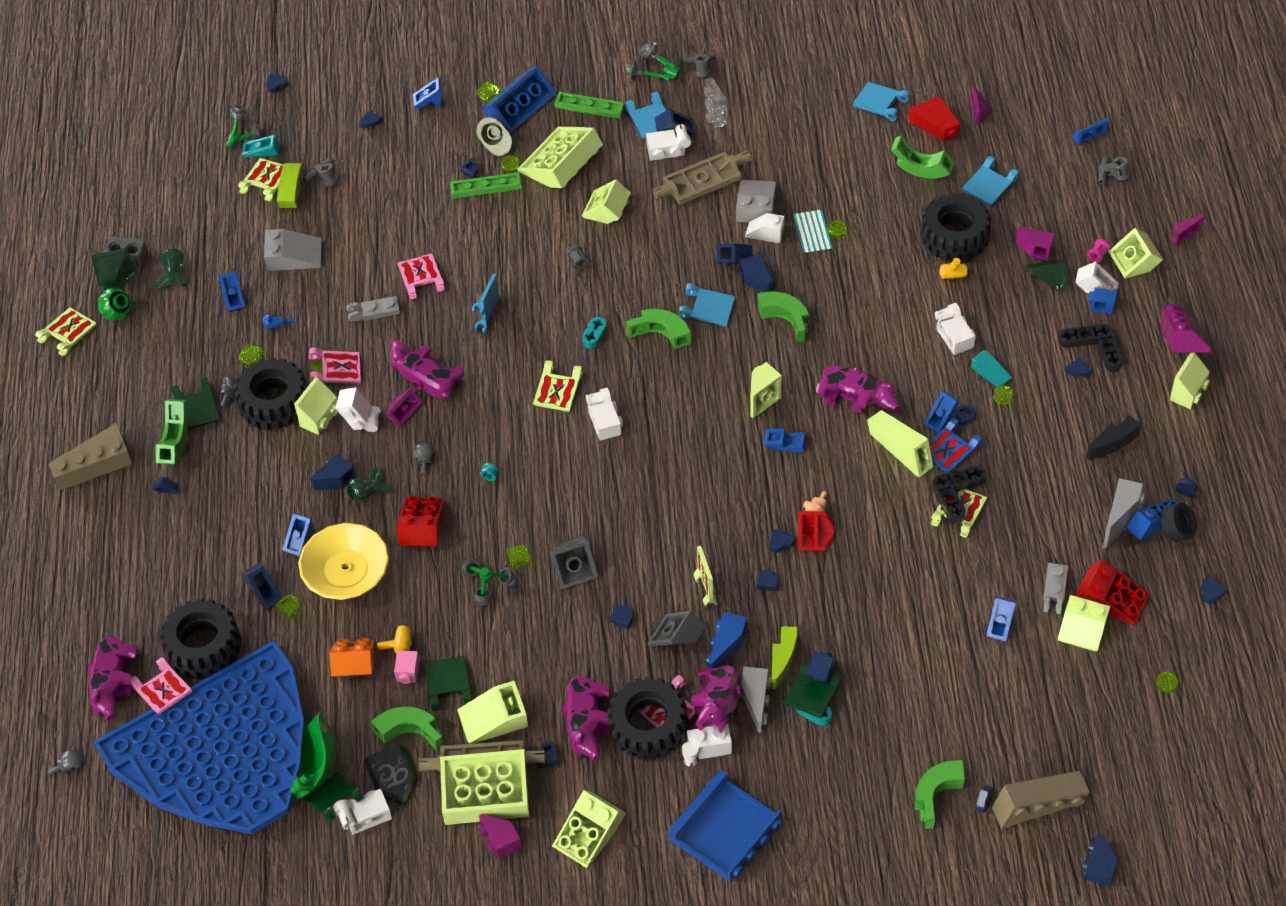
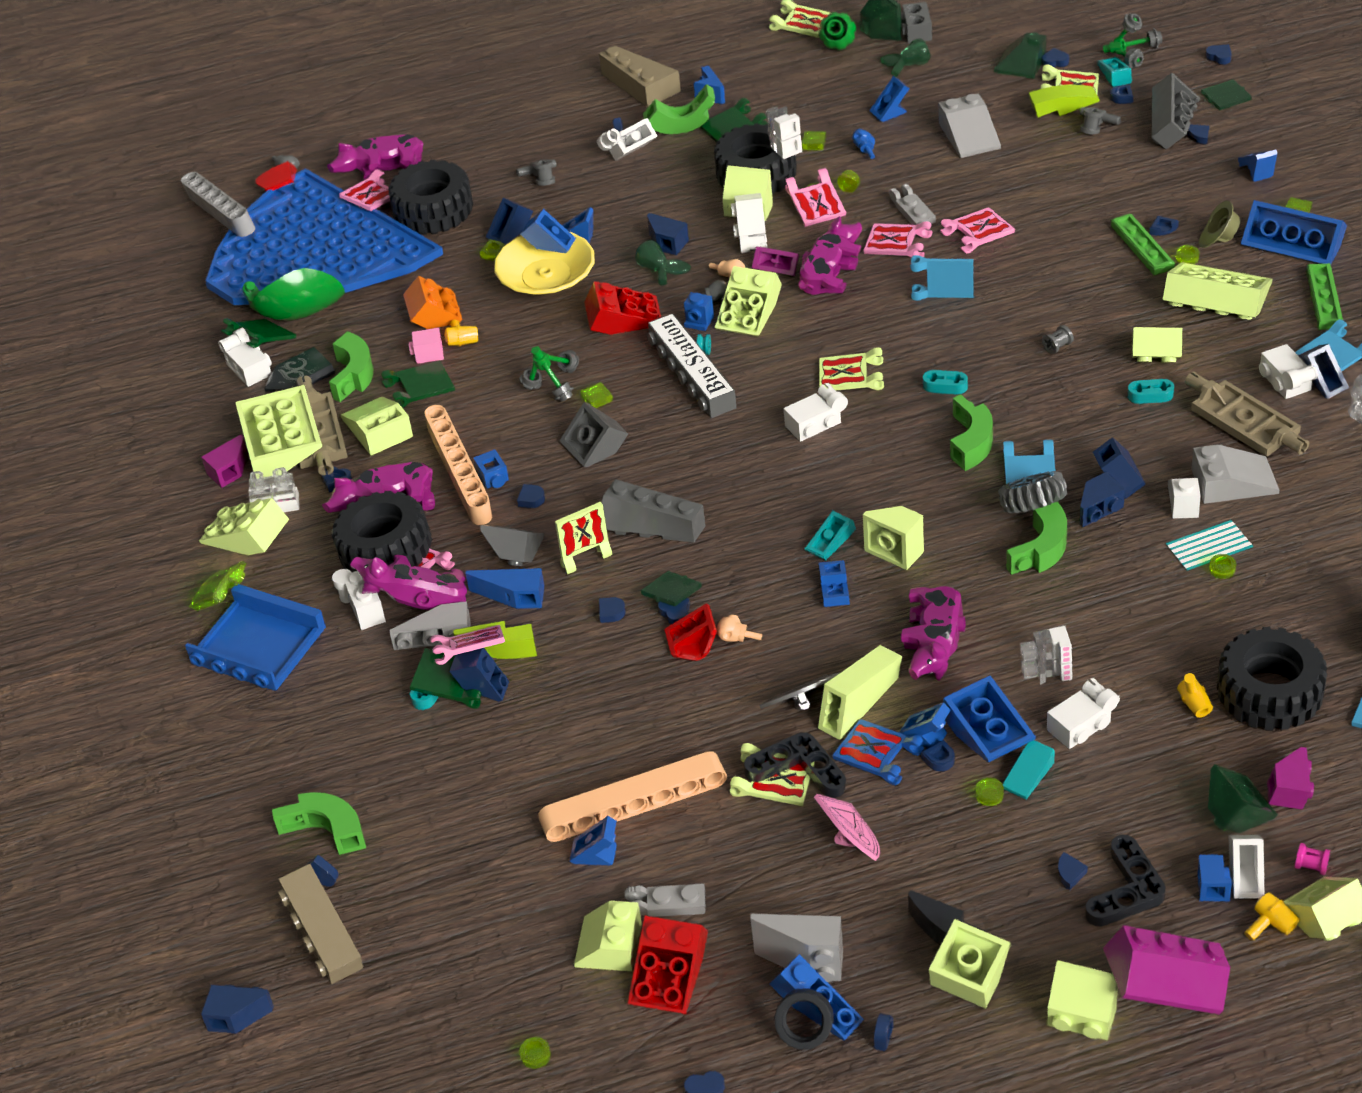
camera: 80 degrees right, 10 degrees down
(99, 765) = (277, 176): none -> red slope
(117, 815) = (218, 204): none -> light grey beam
(140, 408) = (708, 77): none -> blue slope
(191, 478) = (627, 140): none -> white hinge
(195, 552) = (540, 169): none -> dark grey piece
(213, 196) = (1023, 56): none -> clear green slope
(224, 178) = (1055, 58): none -> dark blue tile
(279, 354) = (784, 132): none -> white hips
(295, 151) = (1121, 94): none -> dark blue tile
(319, 548) = (547, 233): none -> blue slope
(324, 340) = (848, 181): none -> clear neon green tile
(327, 93) = (1226, 94): none -> clear green piece
(343, 126) = (1171, 110): none -> dark grey wedge
(397, 440) = (725, 267): none -> light nougat piece
(410, 328) = (897, 239): none -> bright pink flag
(449, 468) = (698, 311): none -> blue brick
(451, 434) = (748, 301): none -> yellowish green slope
(512, 484) = (691, 366): none -> brick
(559, 799) = (278, 487): none -> clear hips
(577, 654) = (458, 465): none -> light nougat beam
(587, 636) = (494, 475): none -> blue brick
(649, 220) = (1150, 391): none -> teal beam
(663, 845) = (215, 587): none -> clear neon green slope
(676, 539) = (651, 513): none -> dark grey wedge
(735, 433) = (831, 535): none -> teal slope
(745, 302) = (1032, 492): none -> dark grey gear
(760, 537) = (671, 588): none -> clear green piece
(798, 660) = (466, 642): none -> bright pink flag
(892, 473) = (798, 694): none -> flat silver shield
(904, 331) = (1047, 655): none -> clear hips
(953, 375) = (986, 720): none -> blue slope
(961, 593) = (632, 796): none -> light nougat beam
(1024, 469) = (852, 828): none -> bright pink shield
(1136, 279) = (1272, 912): none -> yellow piece
(1153, 428) = (969, 963): none -> yellowish green slope

